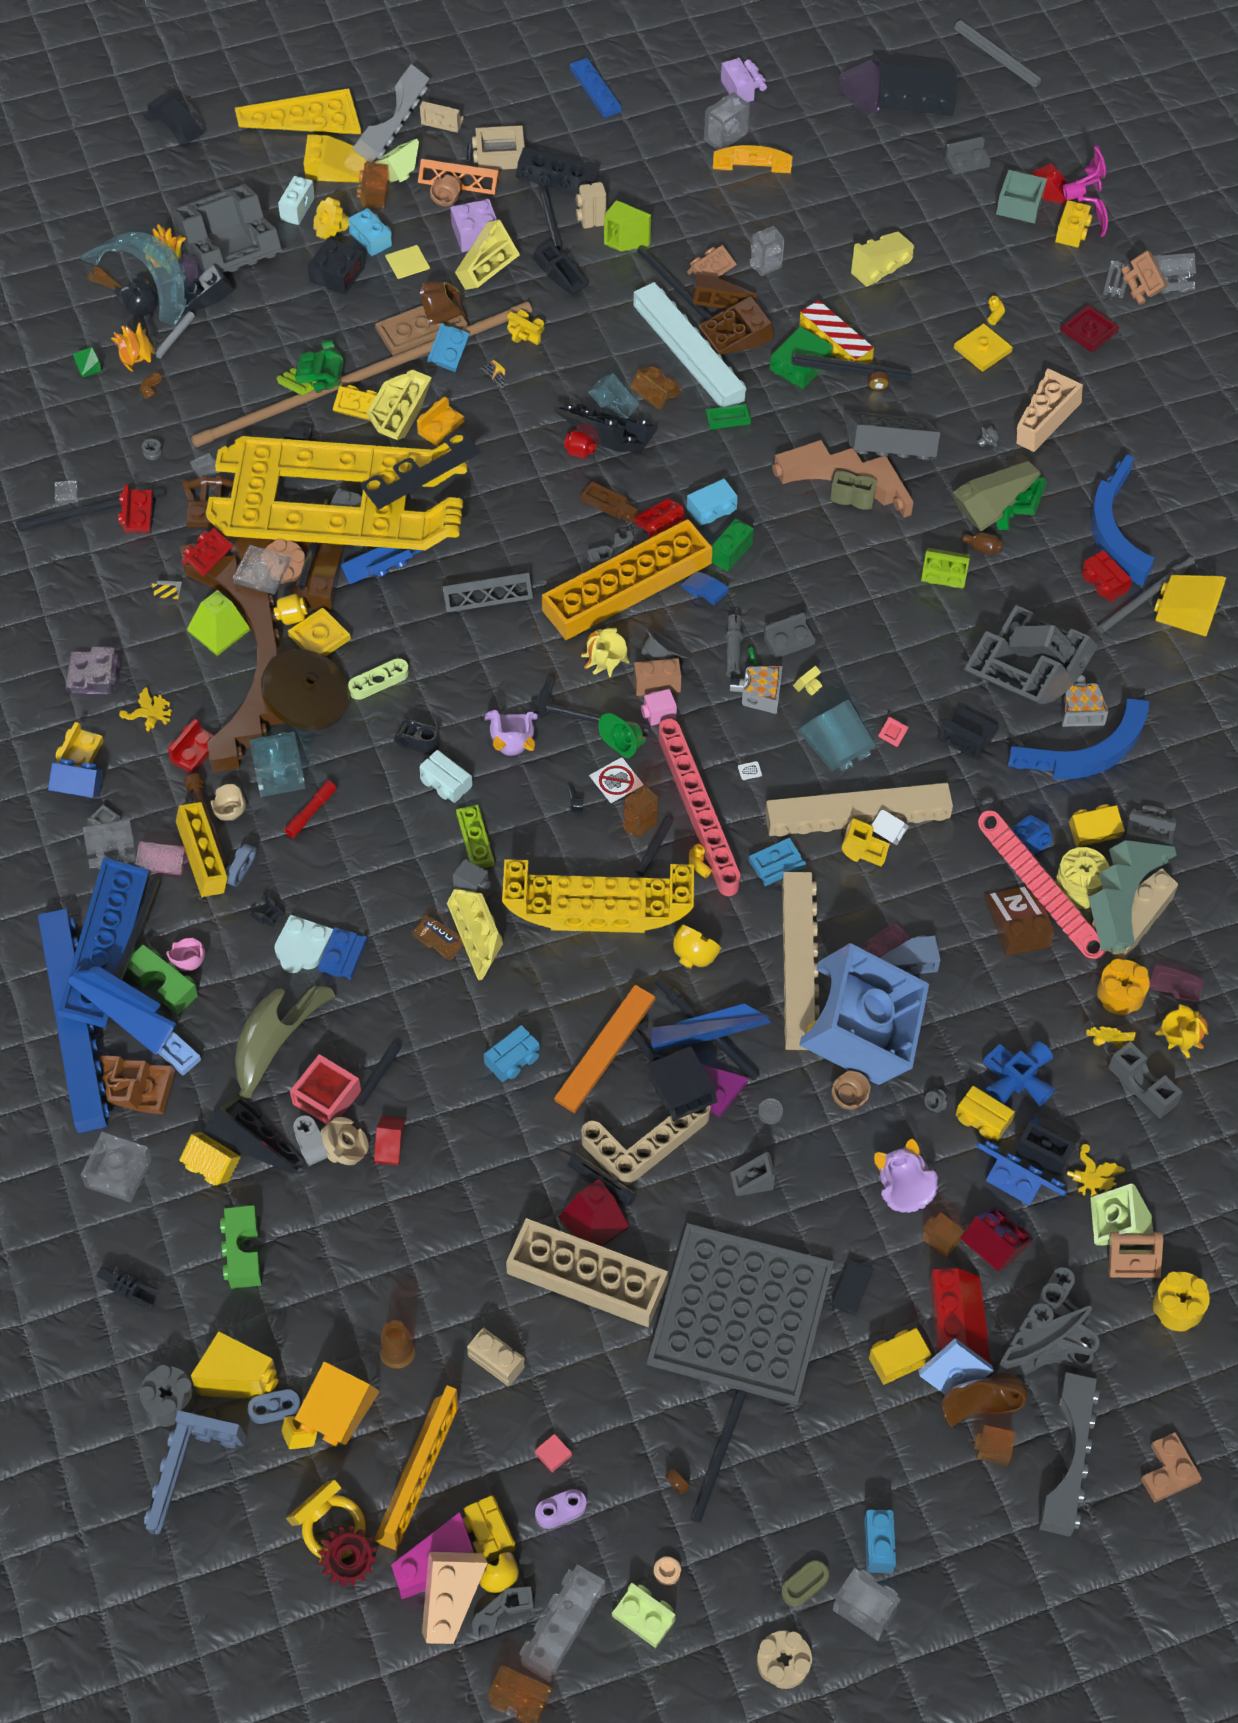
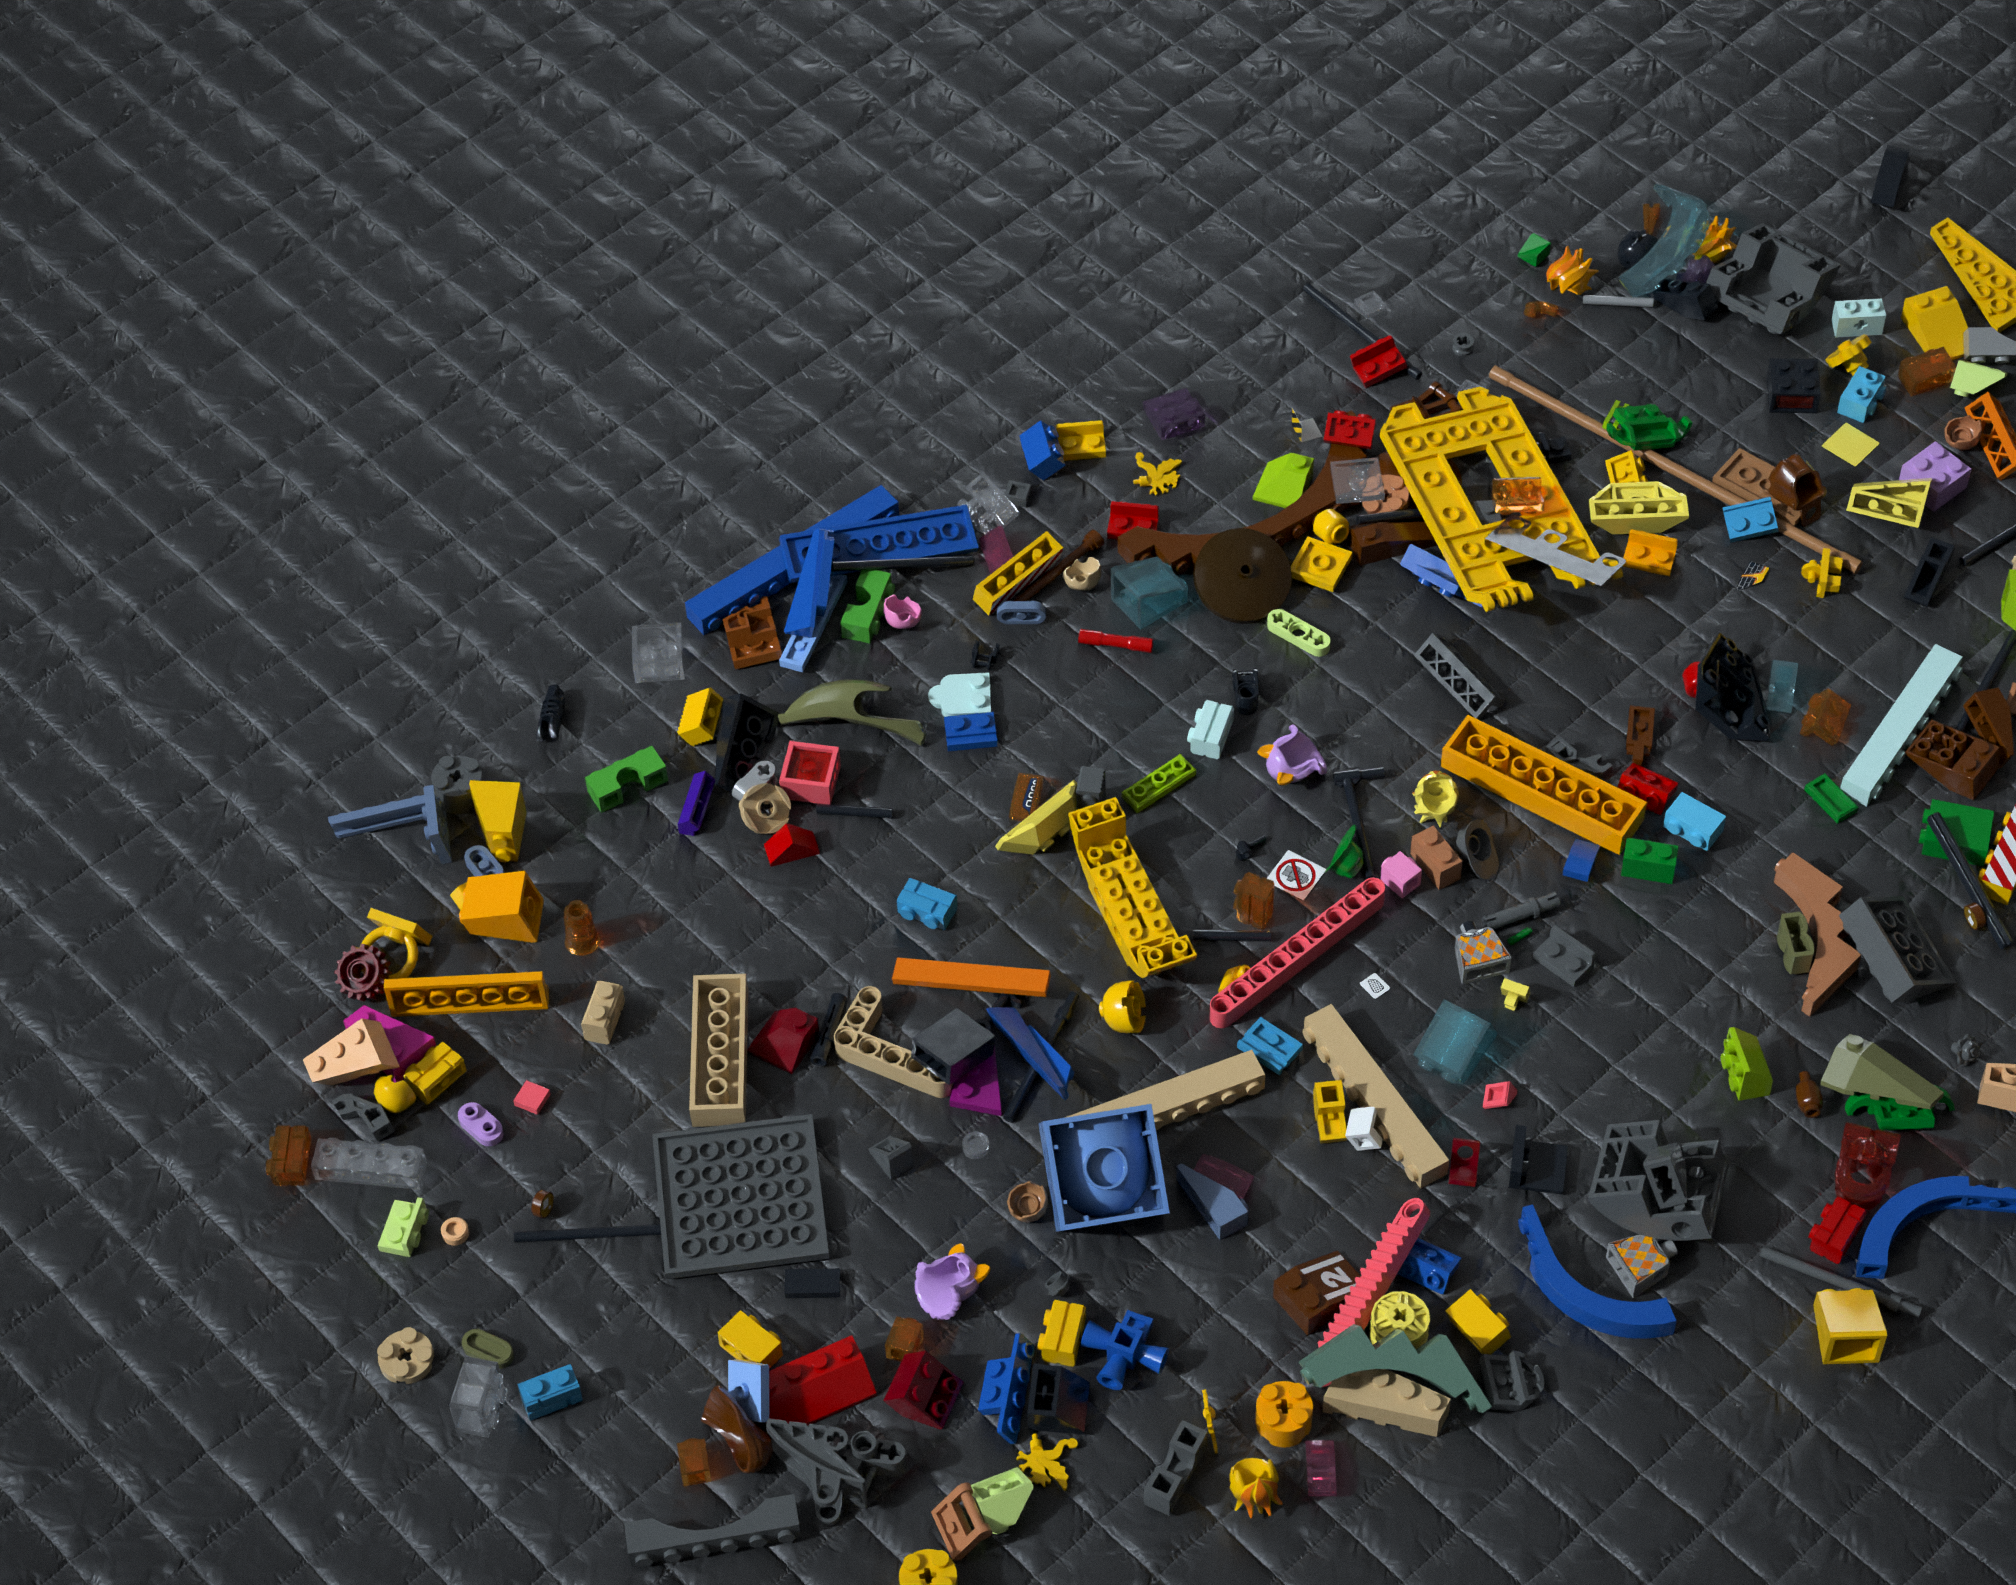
camera: 70 degrees right, 5 degrees down
(302, 1199) = (692, 802): none -> dark purple piece
(351, 470) = (1517, 495): none -> clear orange bracket
(957, 782) = (1464, 1170): none -> dark red bracket
(1062, 523) = (1871, 1147): none -> clear red helmet

